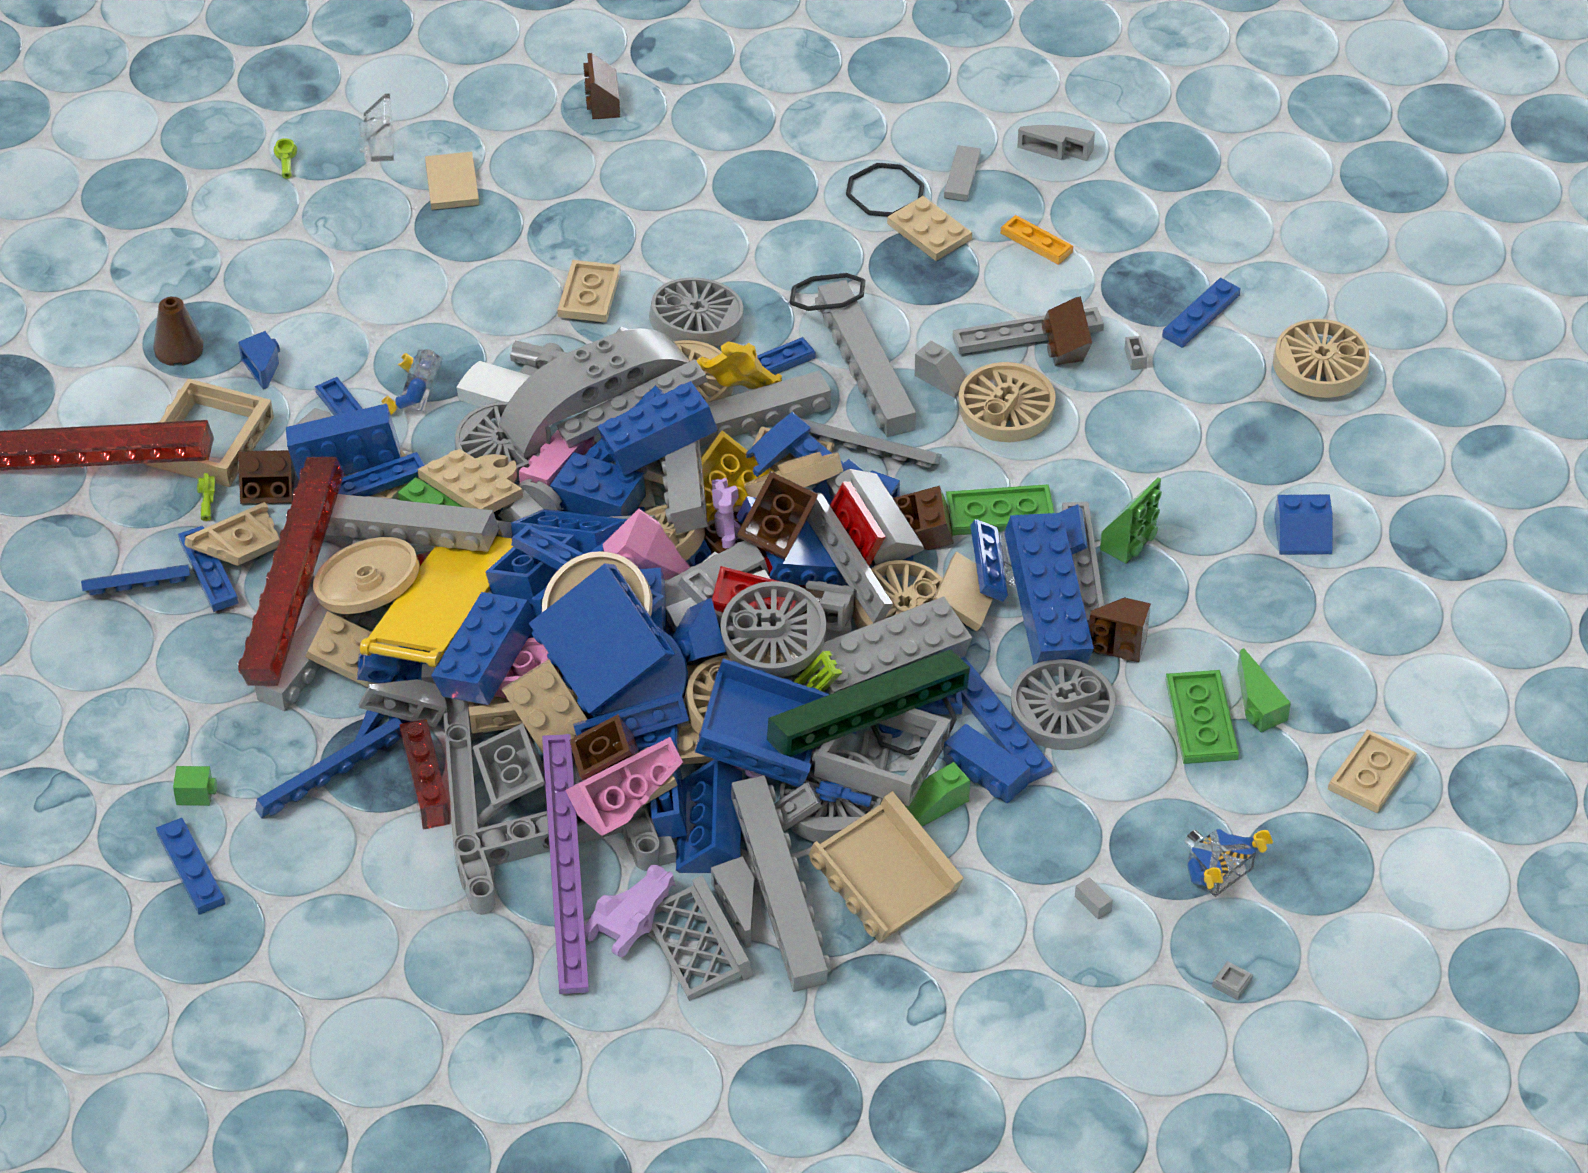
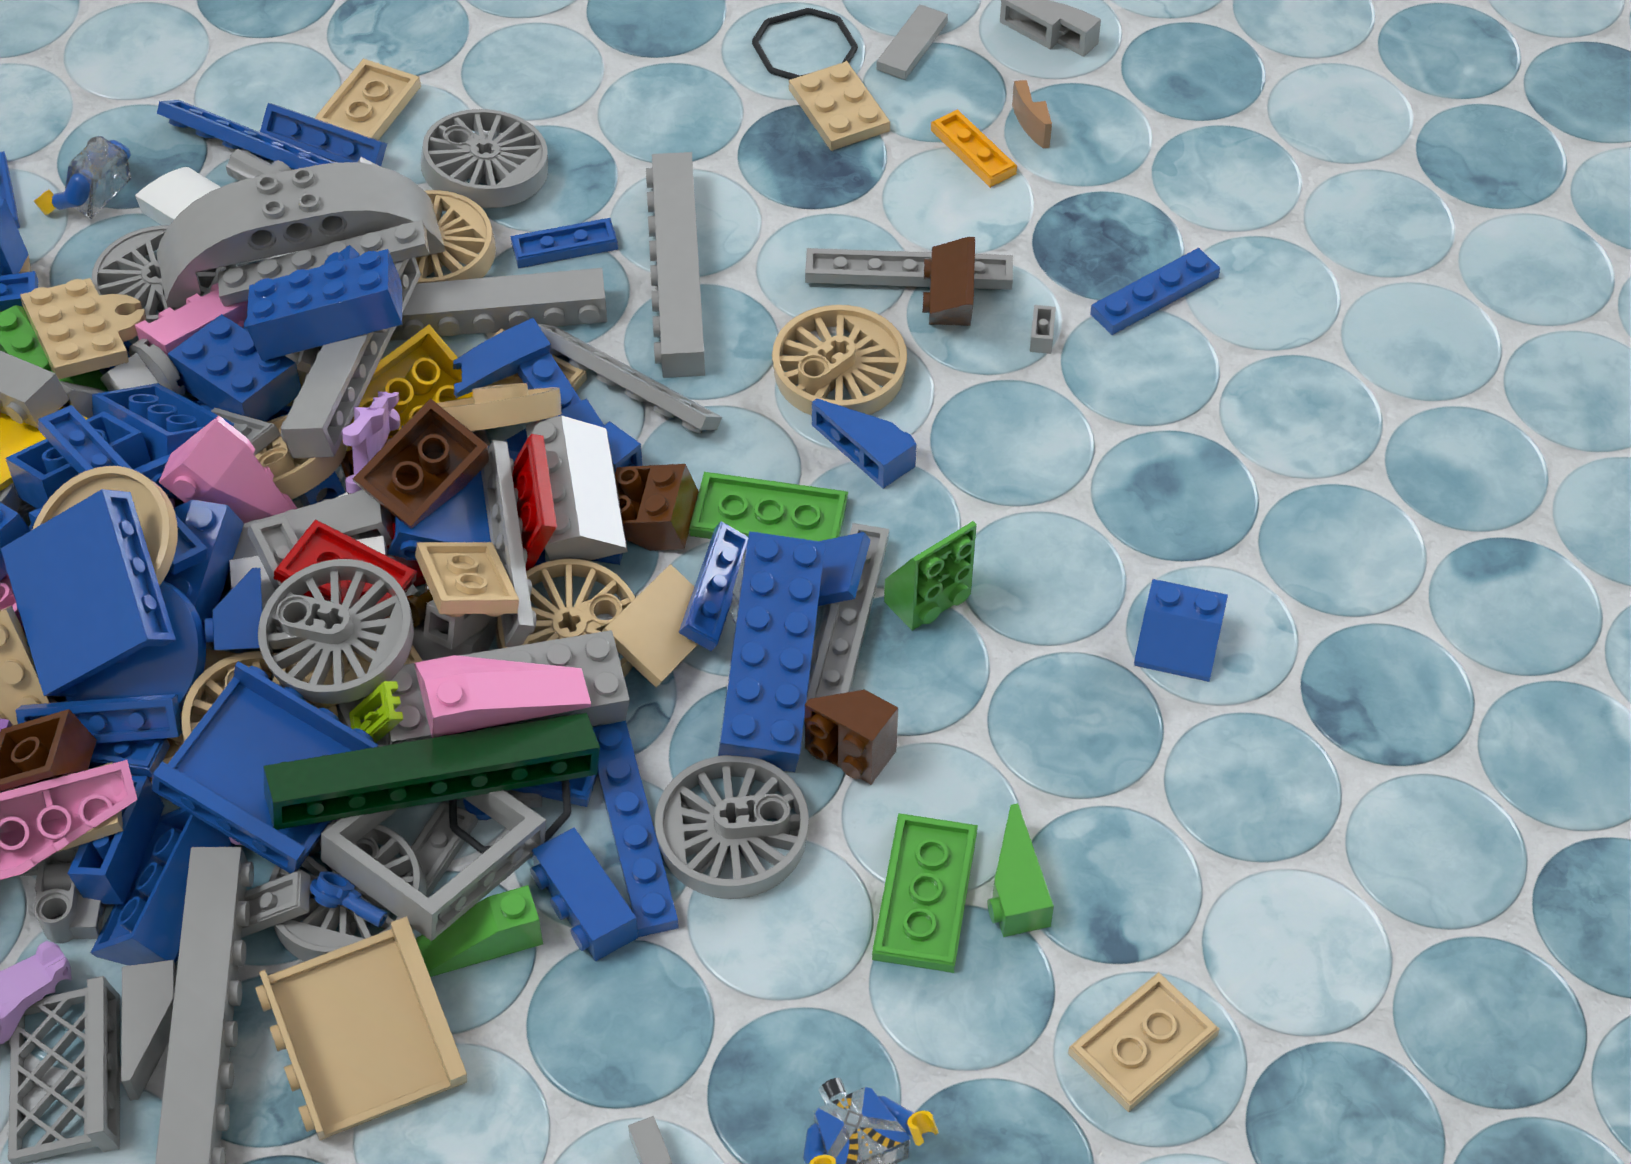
camera: 15 degrees right, 5 degrees up
(505, 332) = (237, 135): none -> blue plate
(568, 321) = (320, 136): none -> blue plate
(738, 366) = (488, 241): yellow animal -> none
(827, 277) = (662, 184): black piece -> none
(836, 583) = (466, 578): none -> tan plate
(883, 649) = (484, 692): none -> bright pink wedge
(939, 368) = (766, 295): light grey slope -> none
(1047, 448) = (867, 441): none -> blue slope
(1069, 209) = (1032, 115): none -> medium nougat slope
(1343, 359) = (1294, 391): tan piece -> none

